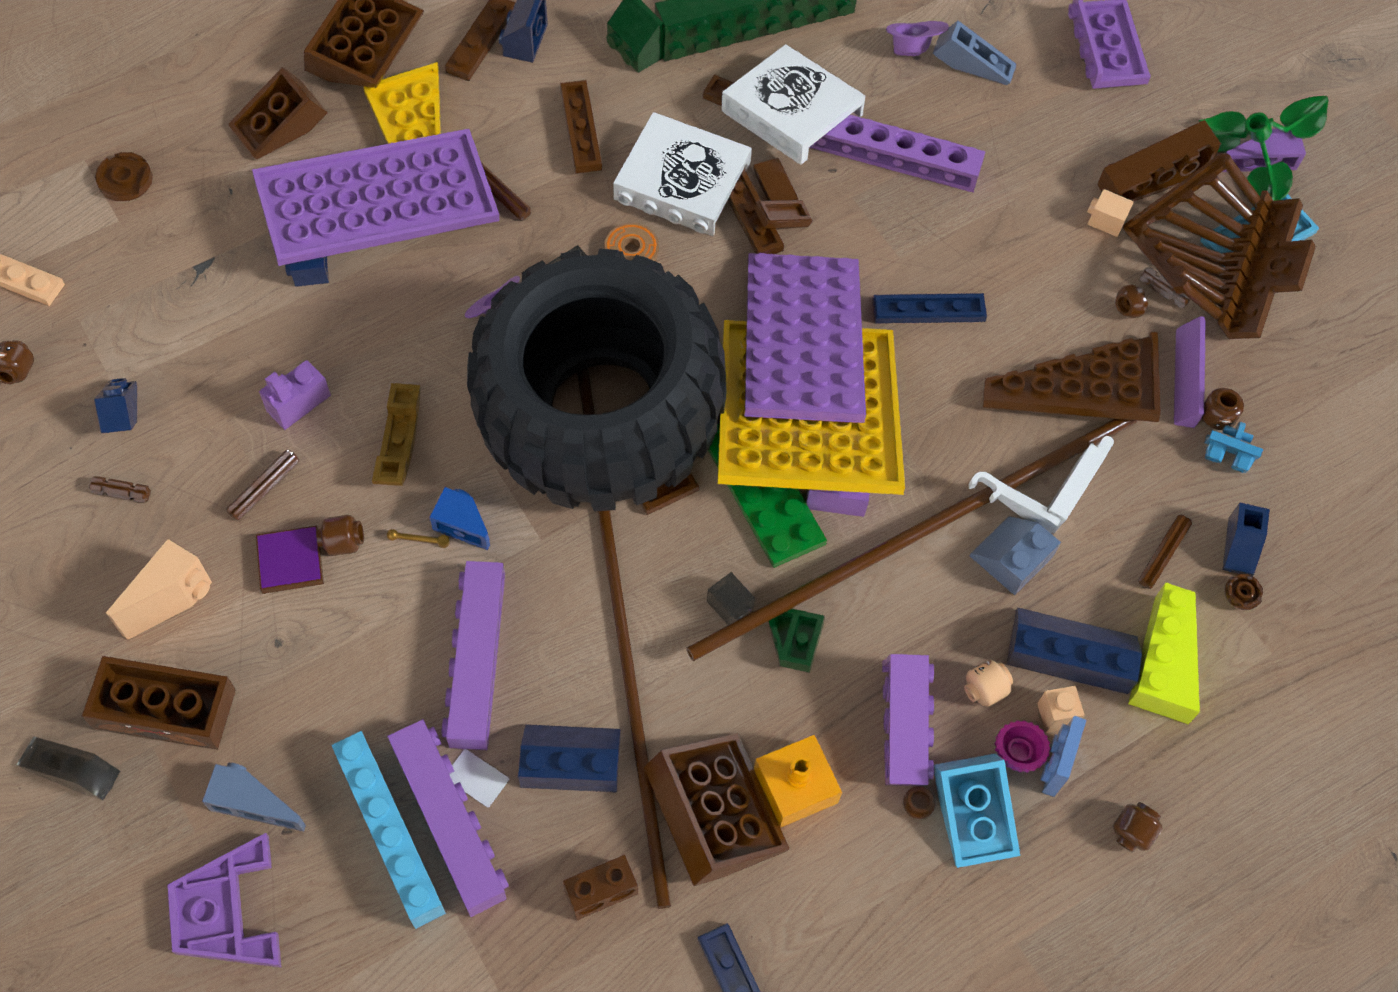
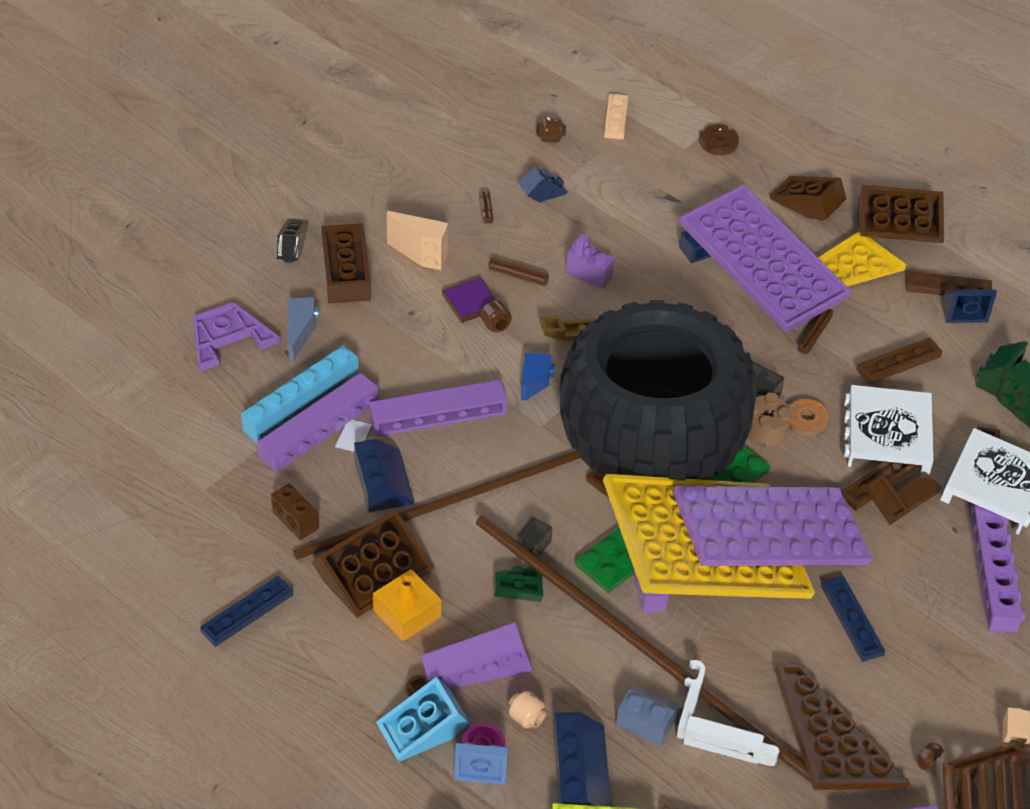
camera: 75 degrees right, 15 degrees down
(442, 541) = (516, 373): pearl gold hinge -> none
(1059, 707) = (523, 762): light nougat brick -> none

